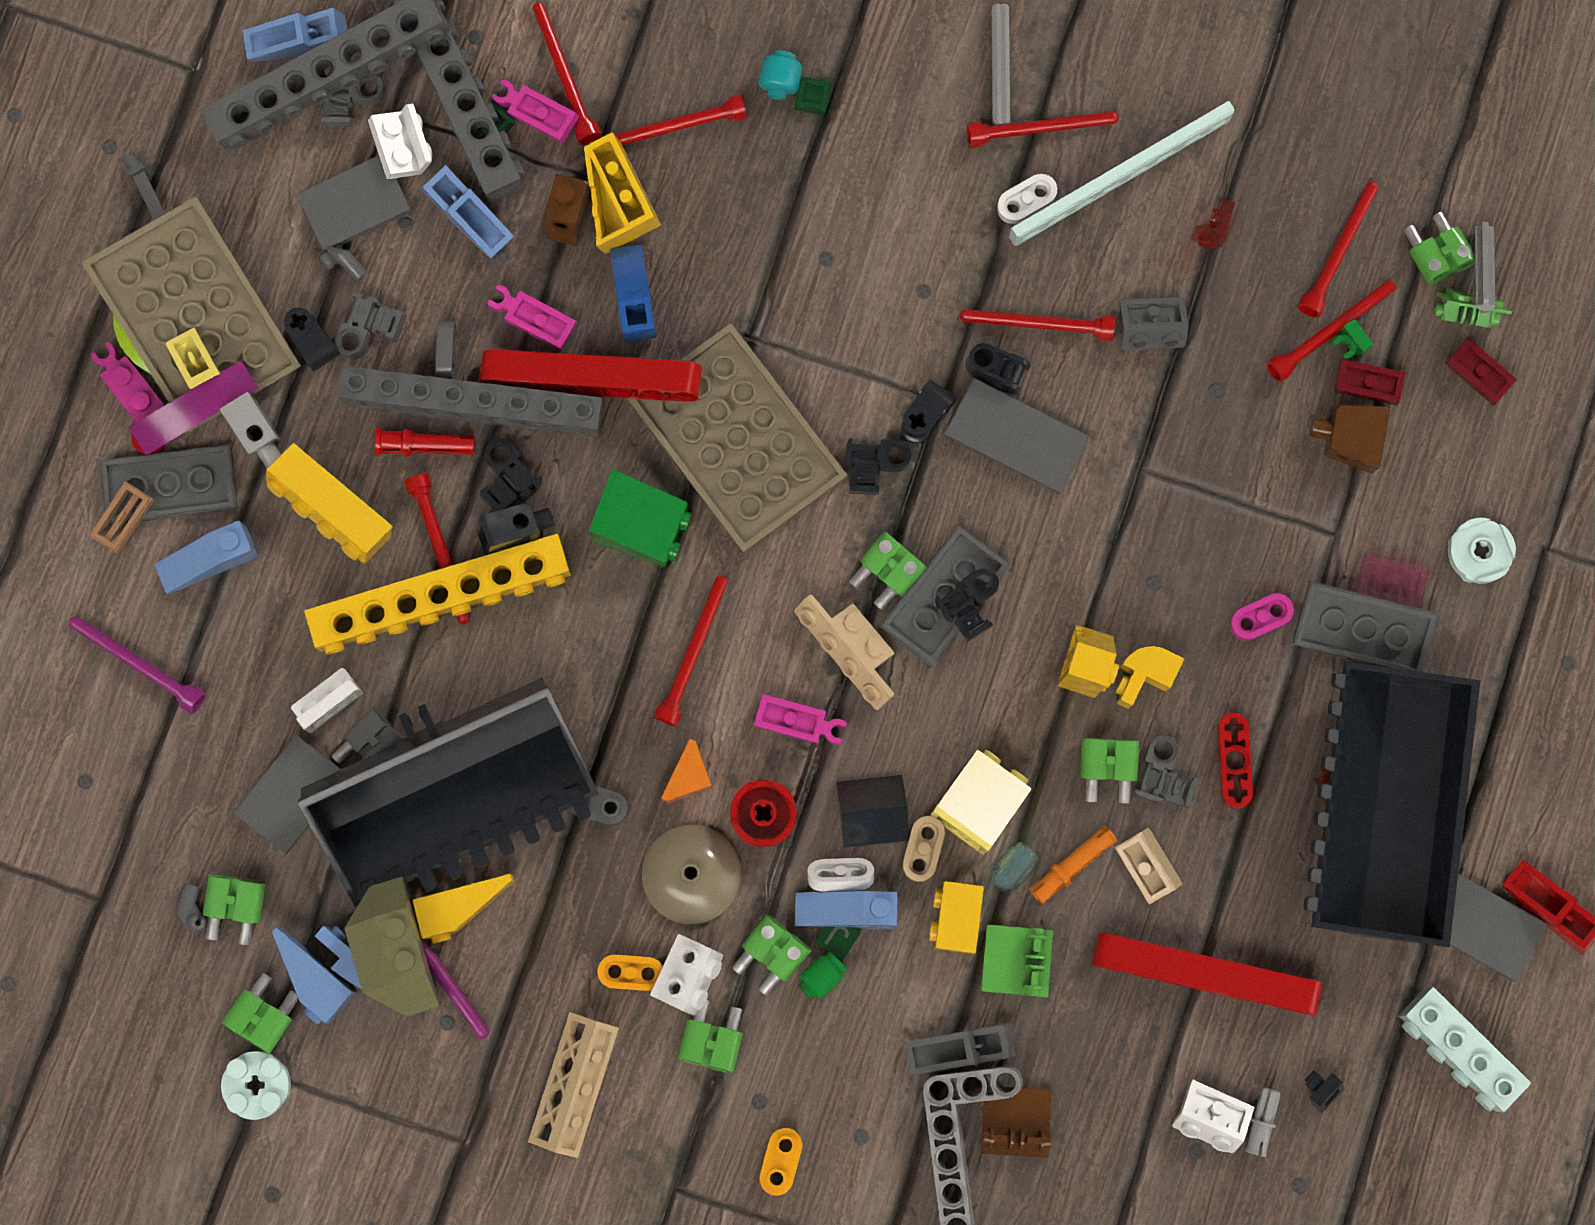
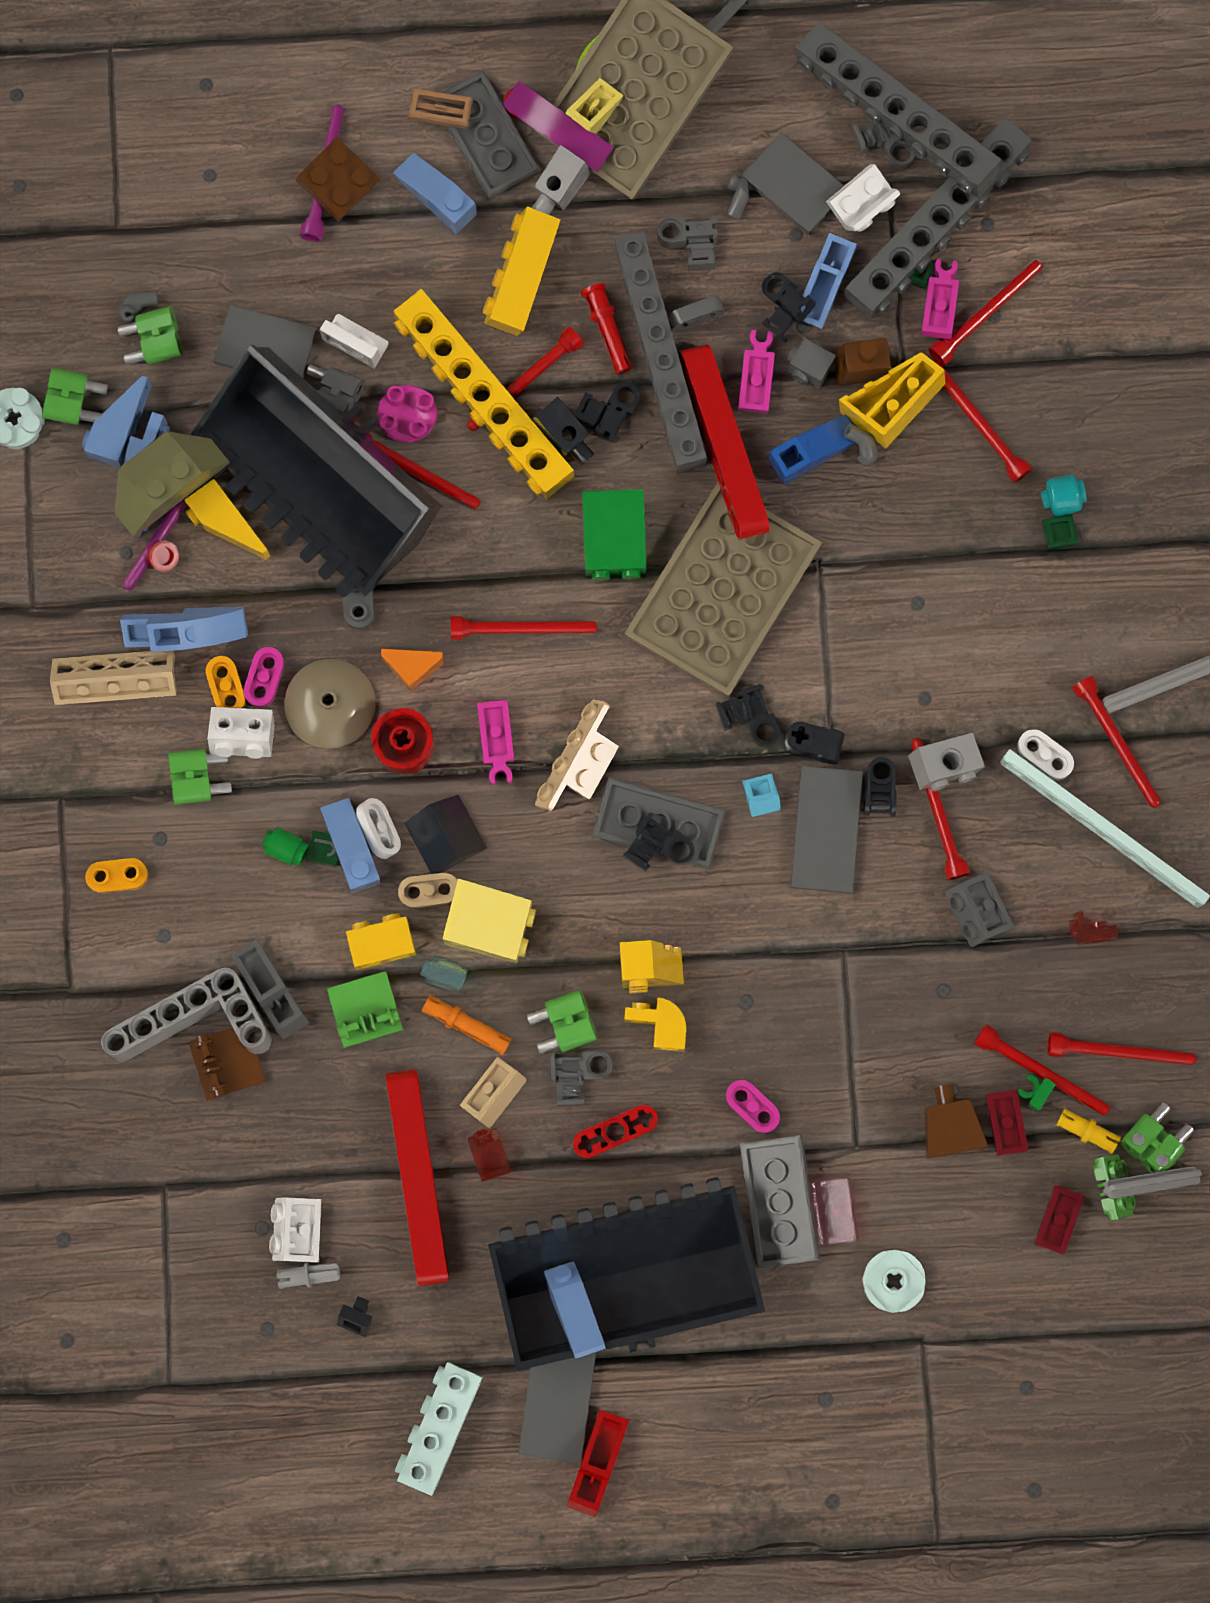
camera: 75 degrees right, 0 degrees up
(128, 384) = (557, 66): dark pink plate -> none
(149, 651) = (337, 179): none -> reddish brown plate
(292, 35) = (920, 71): medium blue slope -> none
(312, 341) = (656, 200): black piece -> none
(425, 677) = (407, 413): none -> dark pink dish
(468, 984) = (162, 555): none -> tile
(476, 255) = (789, 304): none -> black piece
(501, 681) = (429, 477): none -> red piece
(544, 260) = (810, 362): none -> dark grey brick
(558, 992) = (184, 630): none -> medium blue slope
(638, 930) = (263, 678): none -> dark pink plate
(648, 240) = (865, 441): none -> dark grey arm
(775, 949) = (293, 798): bright green piece -> none
(892, 565) = (666, 765): bright green piece -> none
(956, 484) = (761, 795): none -> medium azure slope
(998, 310) = (959, 751): none -> light grey brick
(1210, 893) = (488, 1154): none -> clear red bracket
(1406, 309) = (1088, 1130): none -> yellow pin
(1406, 867) = (574, 1309): none -> medium blue slope

